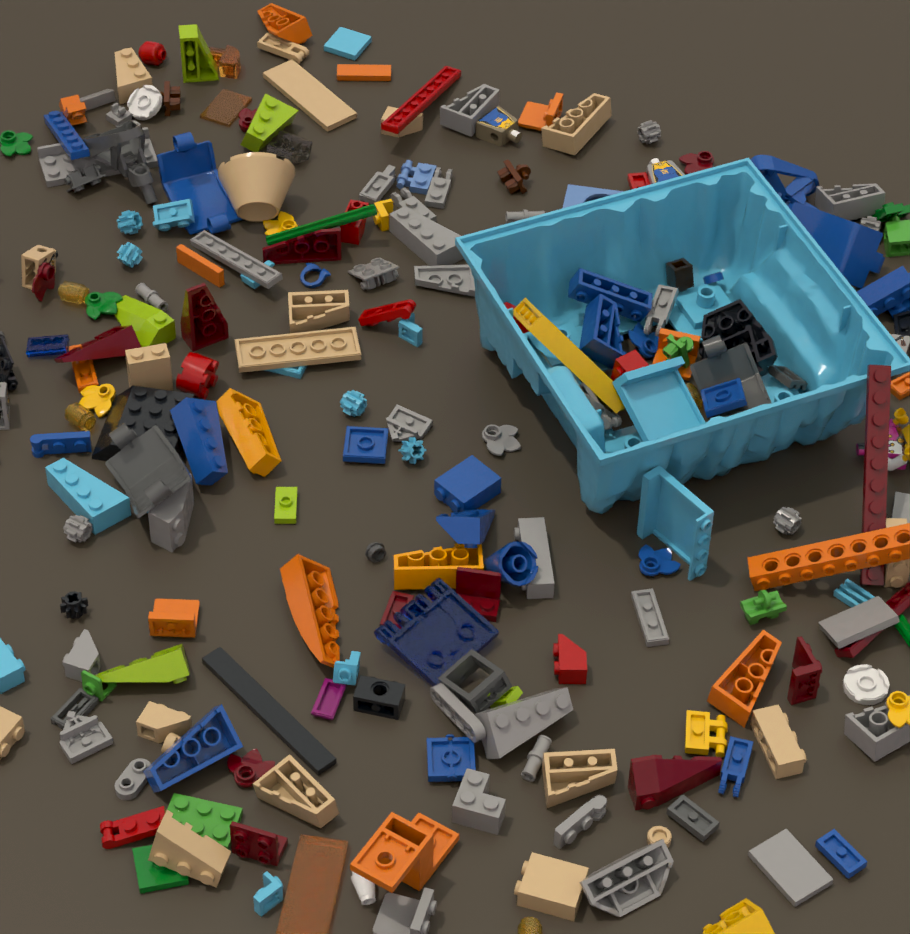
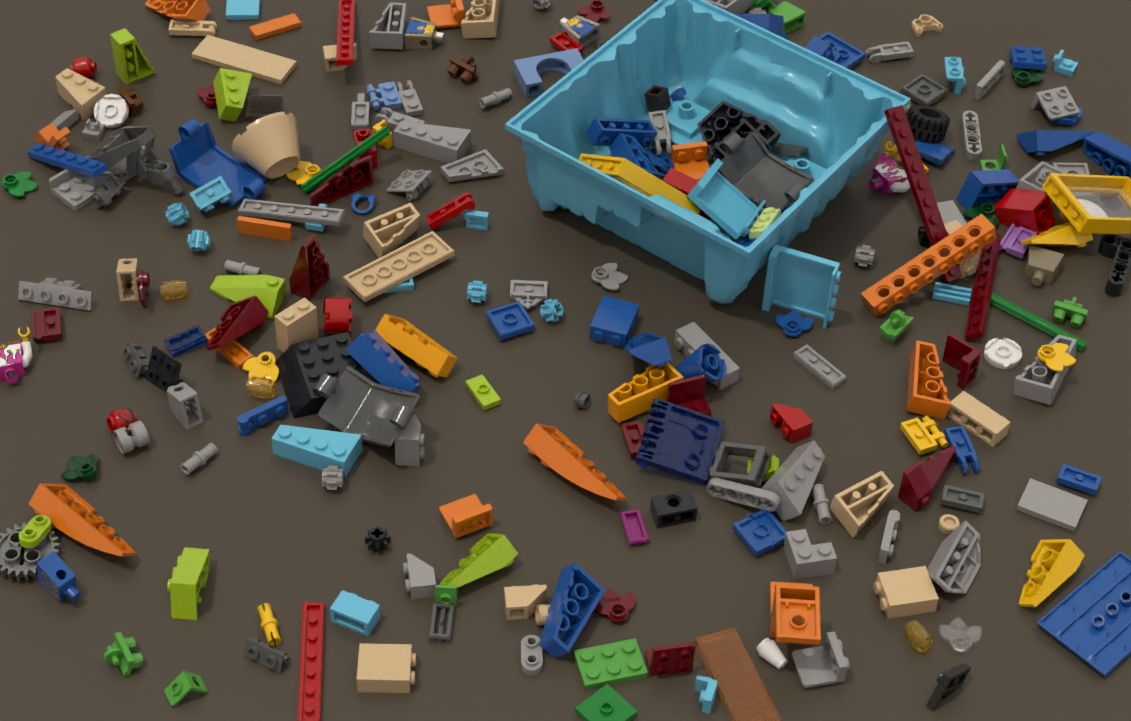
camera: 30 degrees left, 0 degrees up
(83, 736) = (467, 639): light grey slope -> none
(102, 303) = (204, 289): green plate -> none
(131, 828) = (565, 690): red plate -> none
(187, 852) = (627, 688): tan wedge -> none
(225, 107) = (180, 93): clear orange piece -> none
(227, 60) = (157, 53): clear orange brick -> none
(269, 711) = (594, 555): black tile -> none
(296, 792) = (672, 607): tan wedge -> none
(347, 671) = (636, 497): medium azure bracket -> none
(678, 348) = (697, 159): bright green hips -> none
(723, 397) = (756, 181): blue plate -> none
(858, 622) = (970, 309): light grey tile -> none

